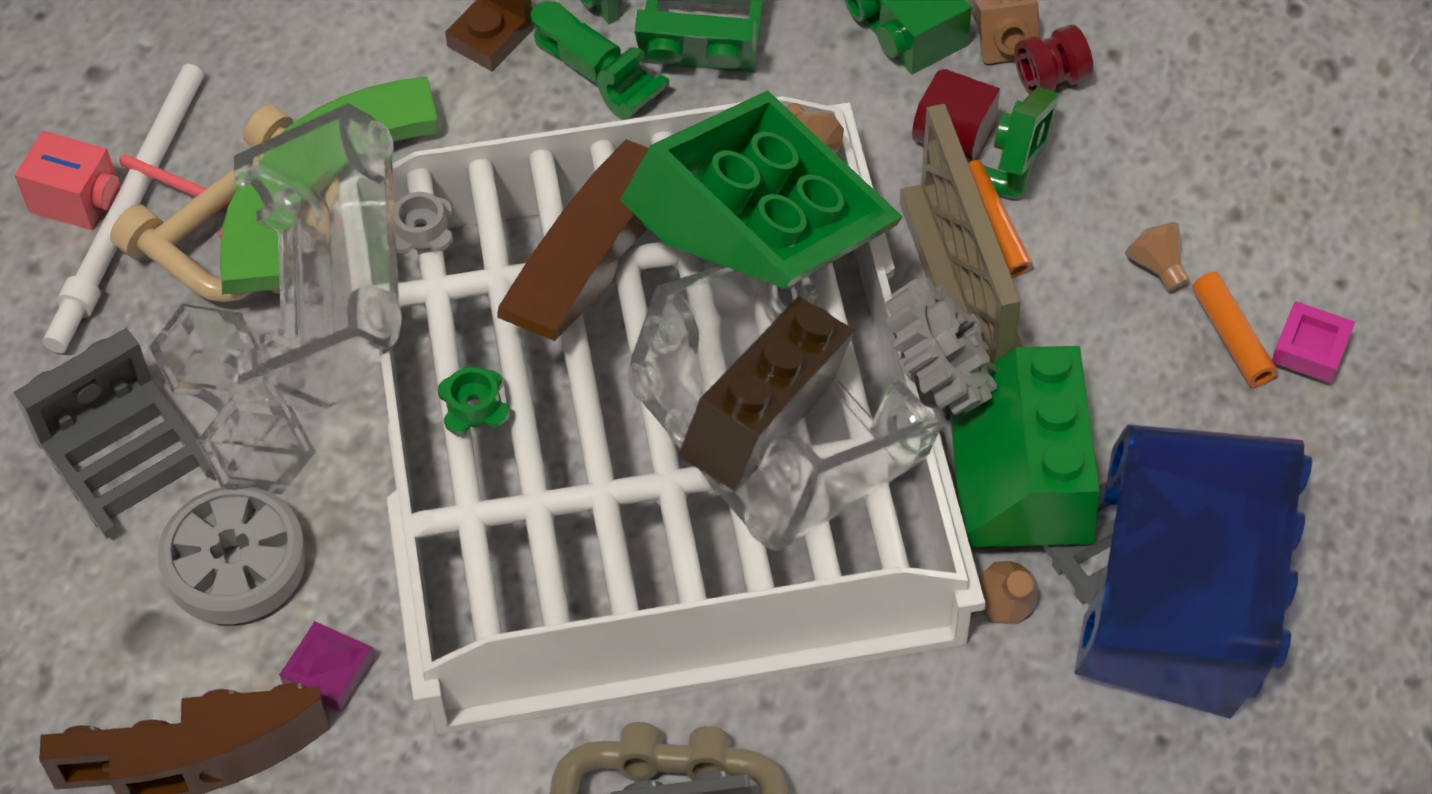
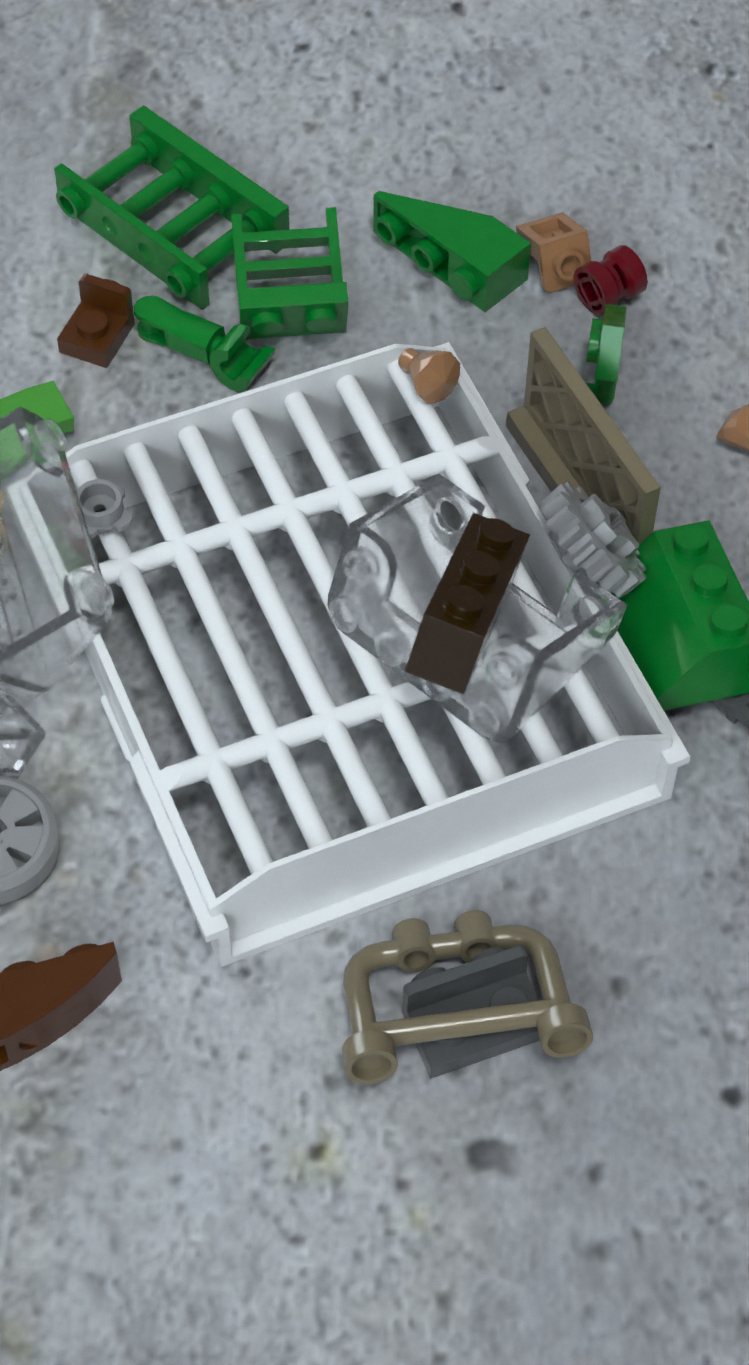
camera: 15 degrees left, 0 degrees up
(329, 662) = (106, 918): magenta tile -> none
(469, 385) = (193, 643): green plate -> none
(578, 251) = (260, 498): reddish brown slope -> none
(756, 194) = (408, 431): green slope -> none
(970, 106) = (529, 318): dark red piece -> none
(1008, 592) = (704, 744): medium nougat rock -> none

